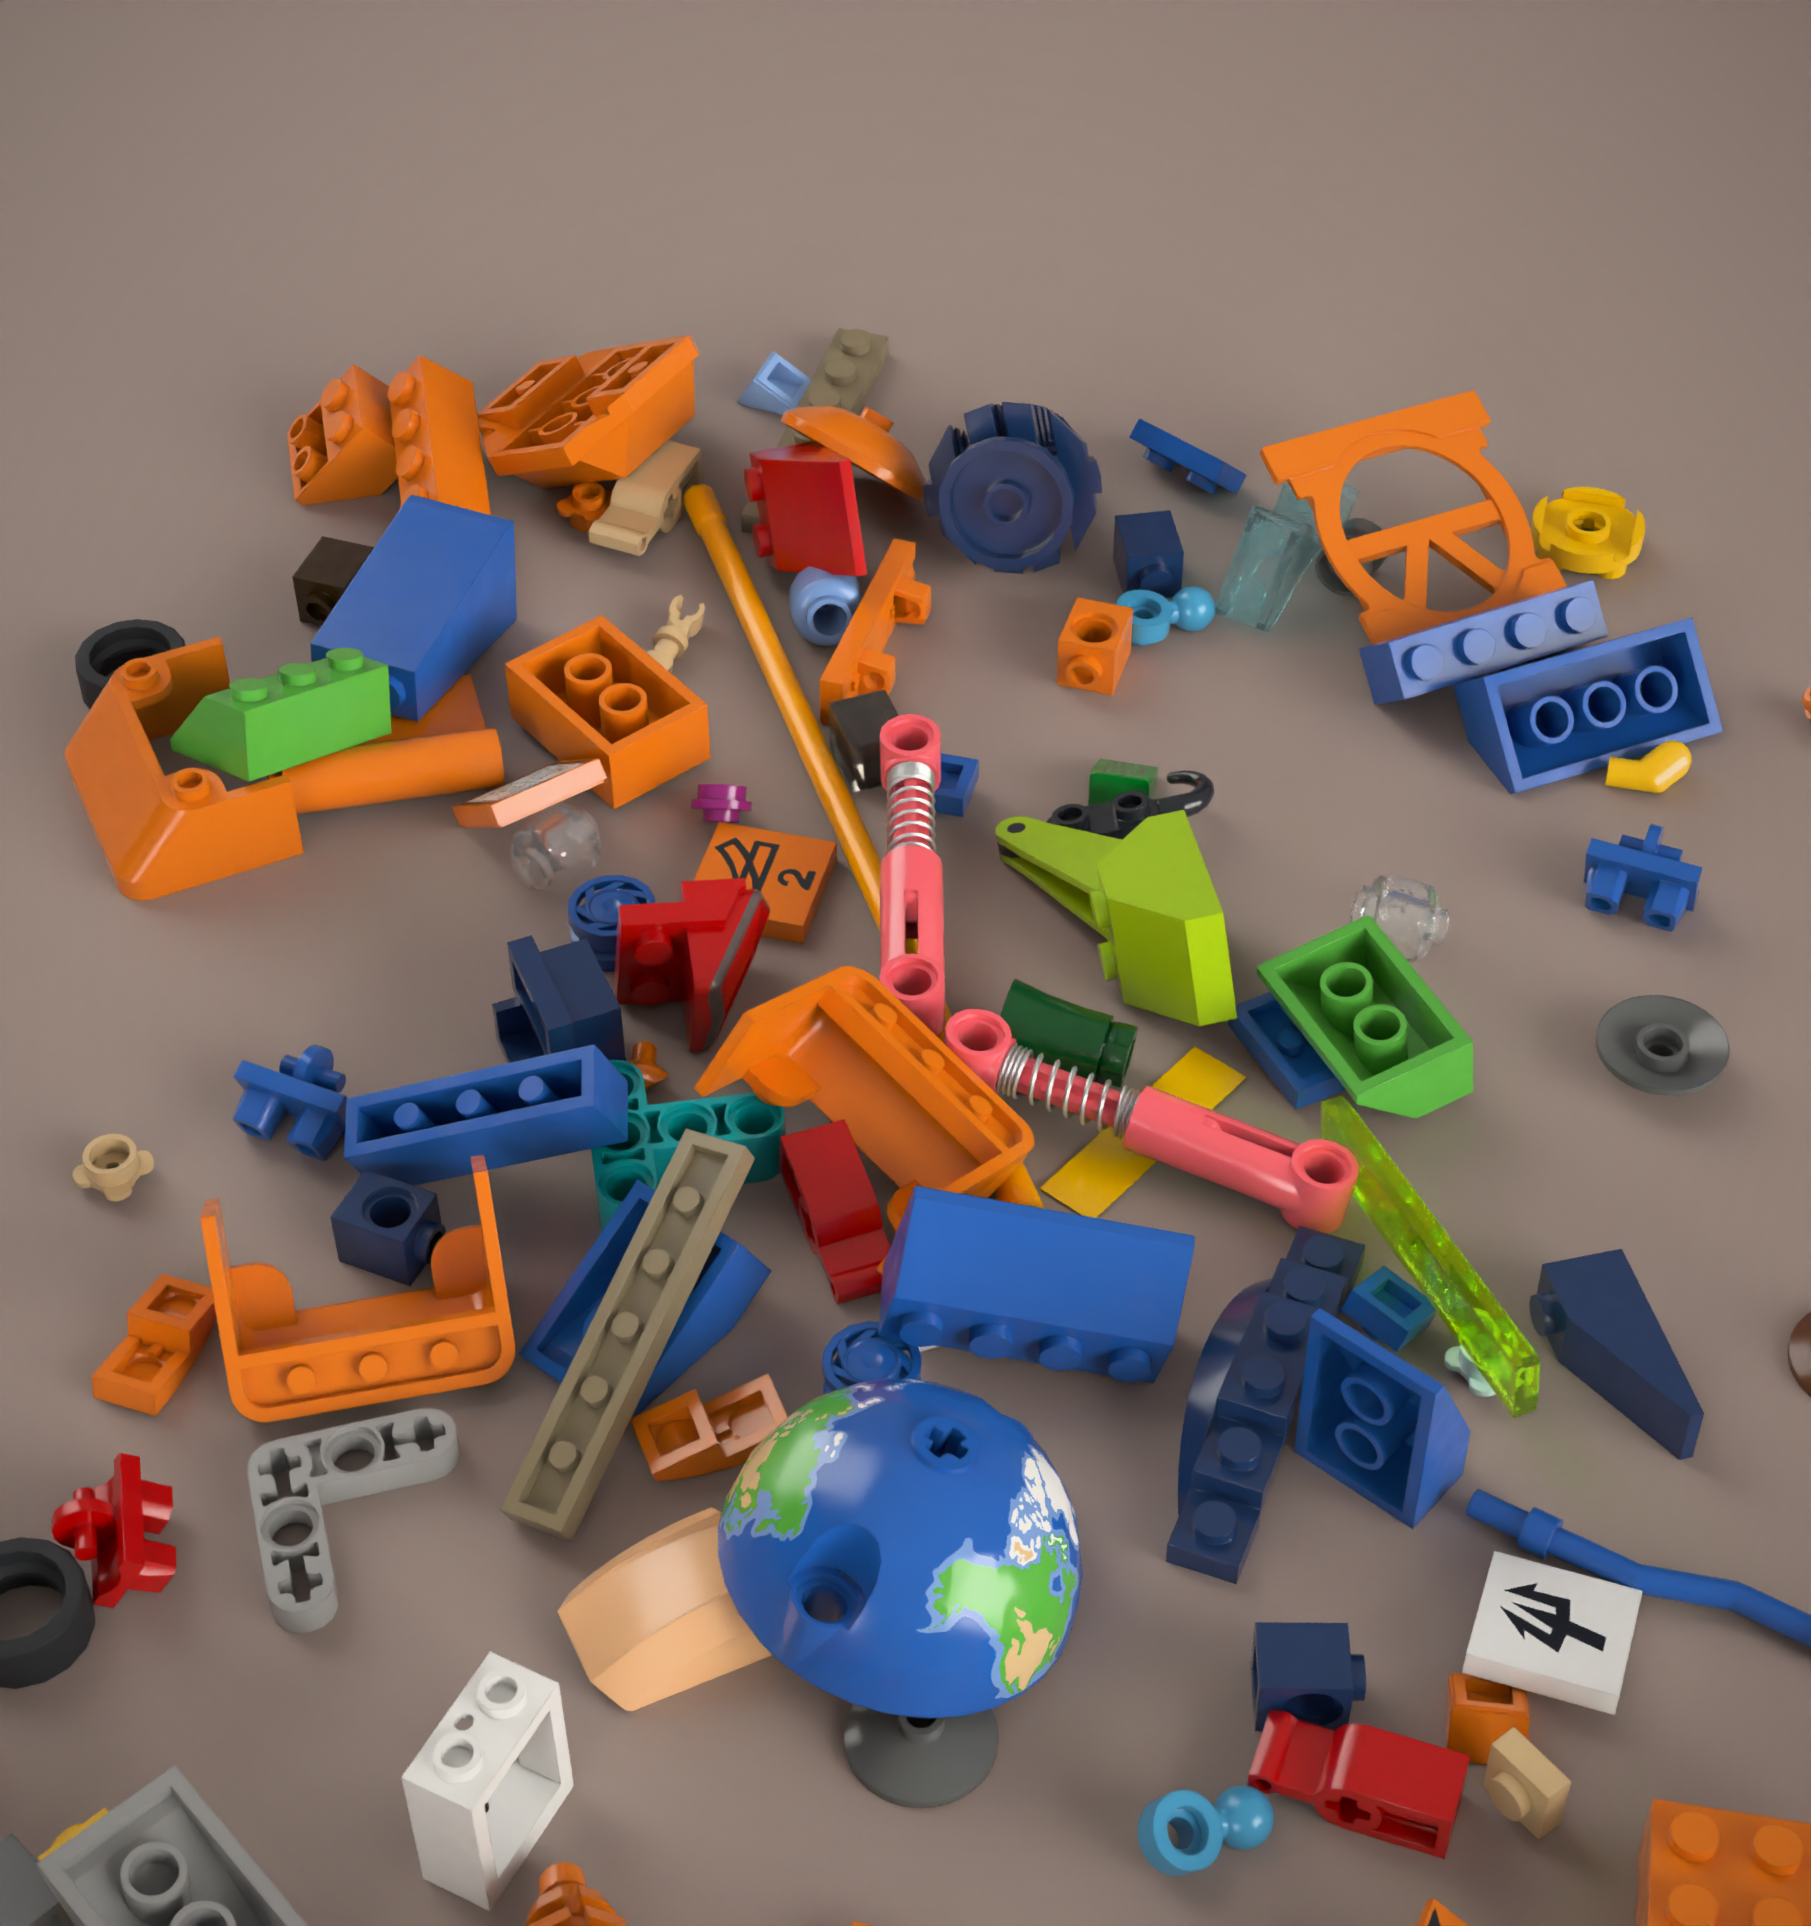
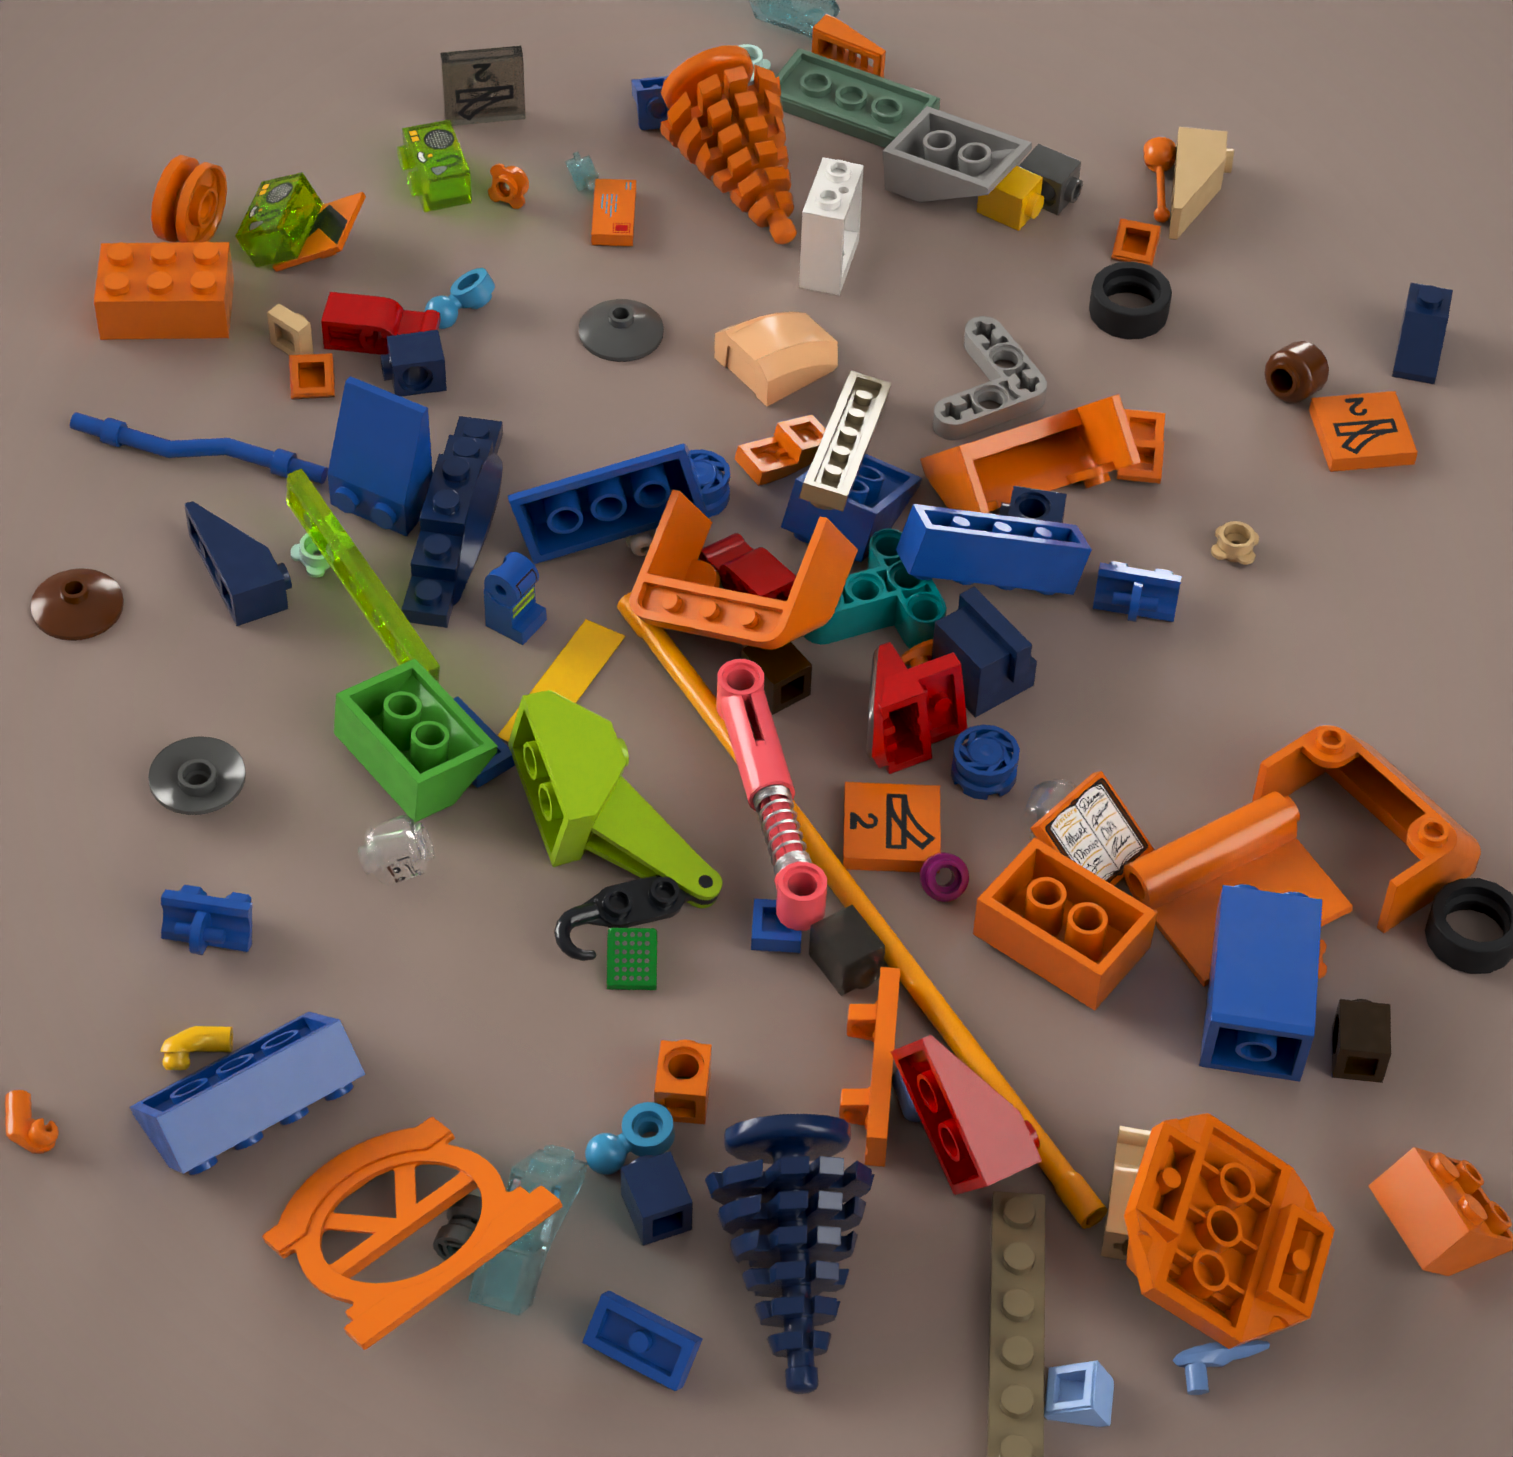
camera: 165 degrees right, 5 degrees up
(110, 1528) = (1083, 323): red hips -> none
(289, 716) = (1302, 819): bright green slope -> none
(437, 437) = (1339, 1167): orange brick -> none
(672, 640) = (1051, 1040): tan piece -> none
(864, 441) = (975, 1200): orange dish -> none
(940, 1522) = (662, 352): blue piece -> none
(1069, 1034) = (636, 707): dark green plant -> none
(1204, 1194) = (511, 599): none -> blue leg
(1303, 1180) = (449, 636): coral piece -> none
(1389, 1309) = (387, 562): blue plate -> none
(1483, 642) = (338, 1122): brick -> none
(1553, 1632) = (276, 408): white tile -> none
(1605, 550) = (249, 1343): yellow plate -> none

